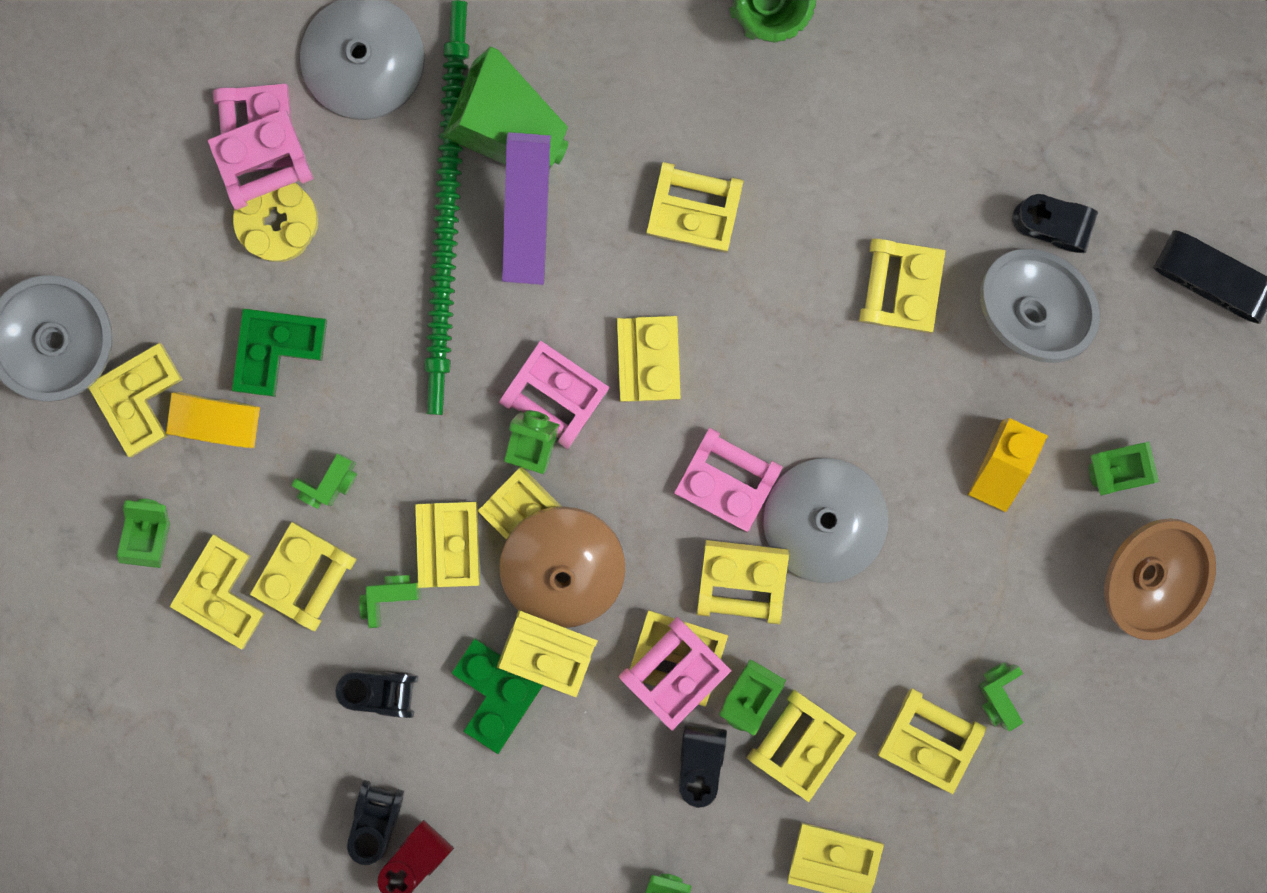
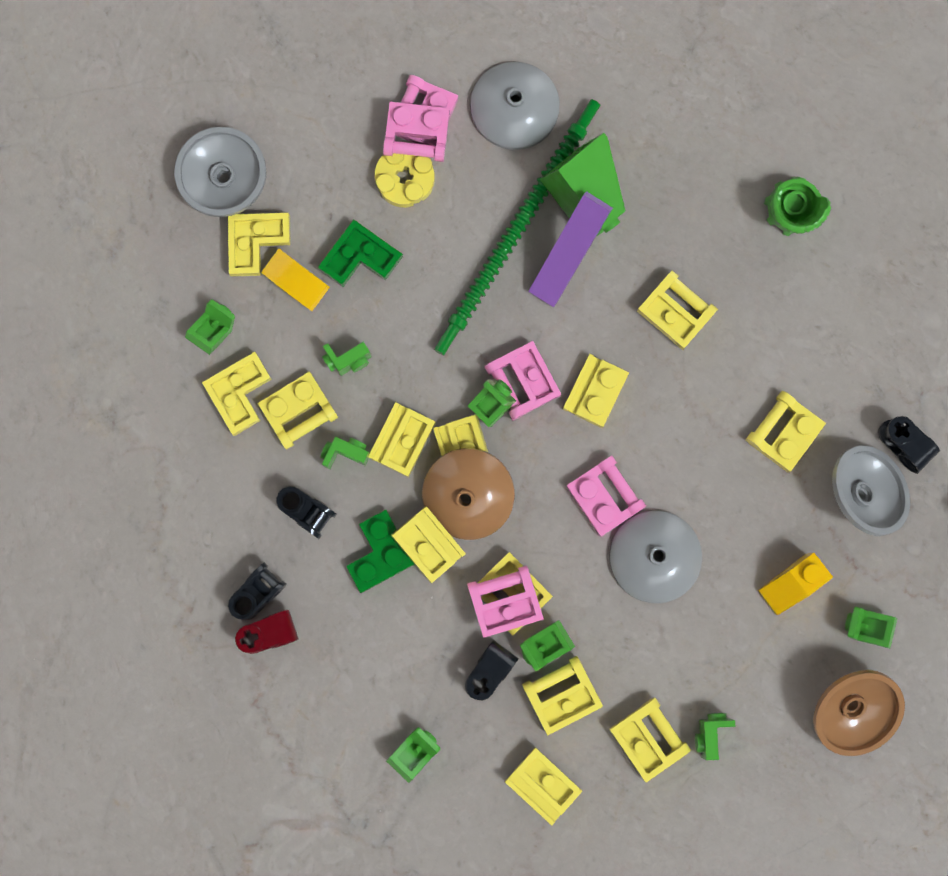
camera: 25 degrees right, 5 degrees down
(745, 569) = (585, 558): light yellow plate -> none

